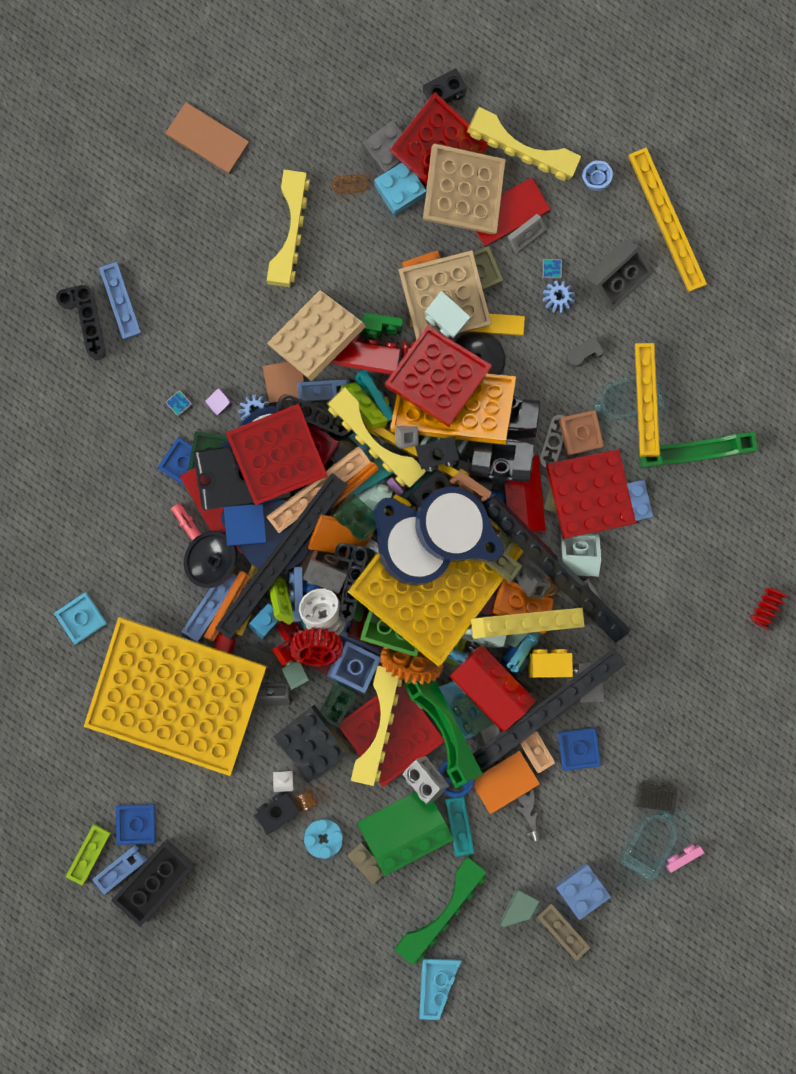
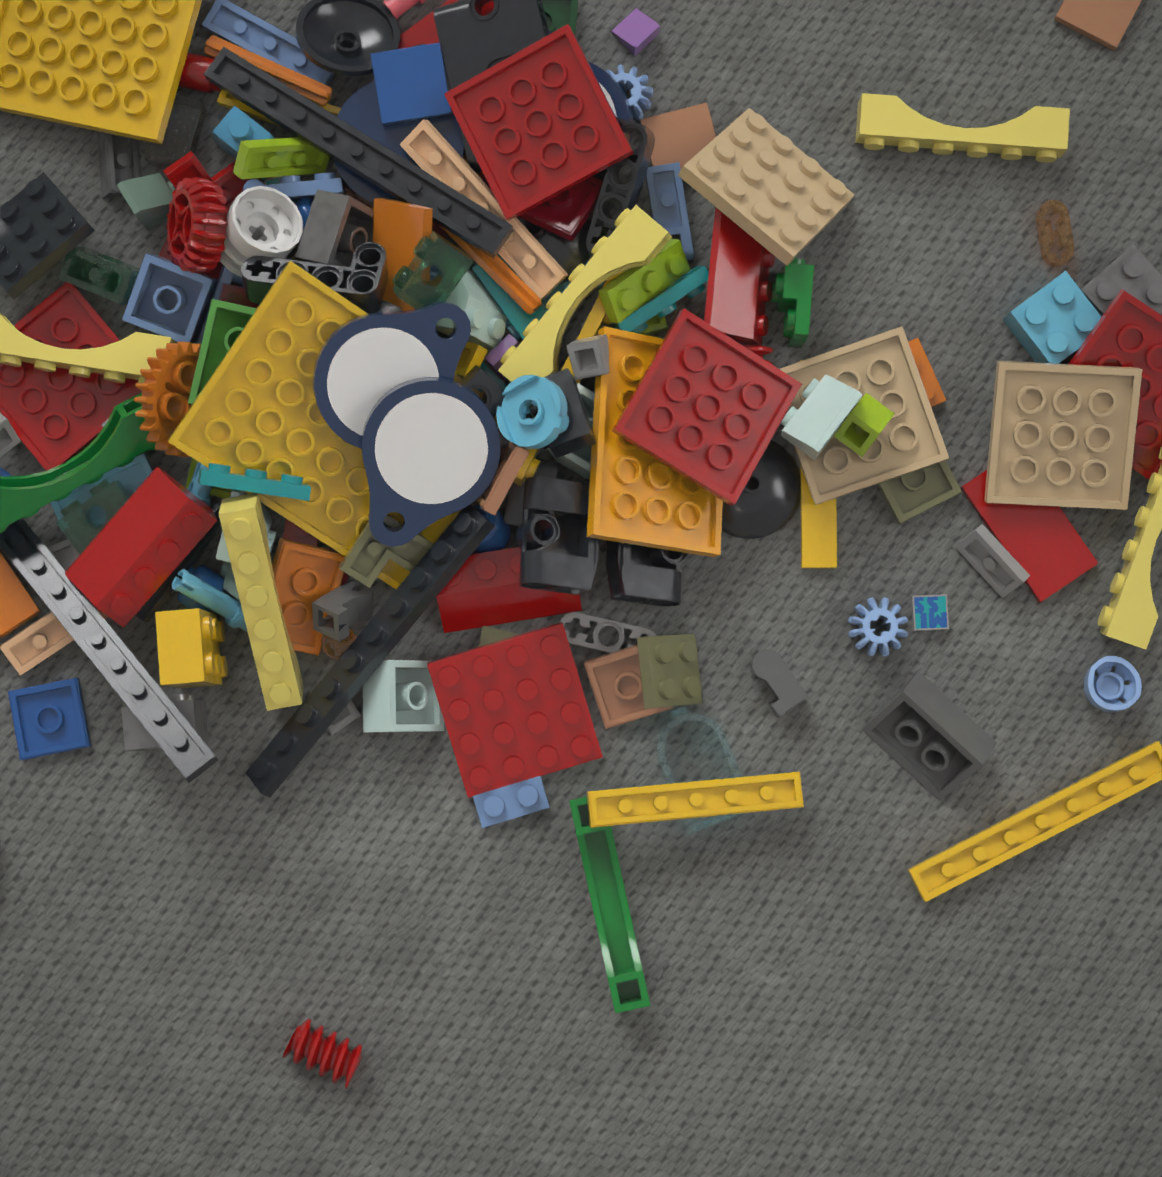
camera: 90 degrees right, 0 degrees up
(442, 456) = (549, 420): none -> medium azure plate
(454, 291) = (864, 424): none -> lime brick
(465, 620) = (254, 481): none -> teal plate
(576, 408) = (669, 670): none -> olive plate

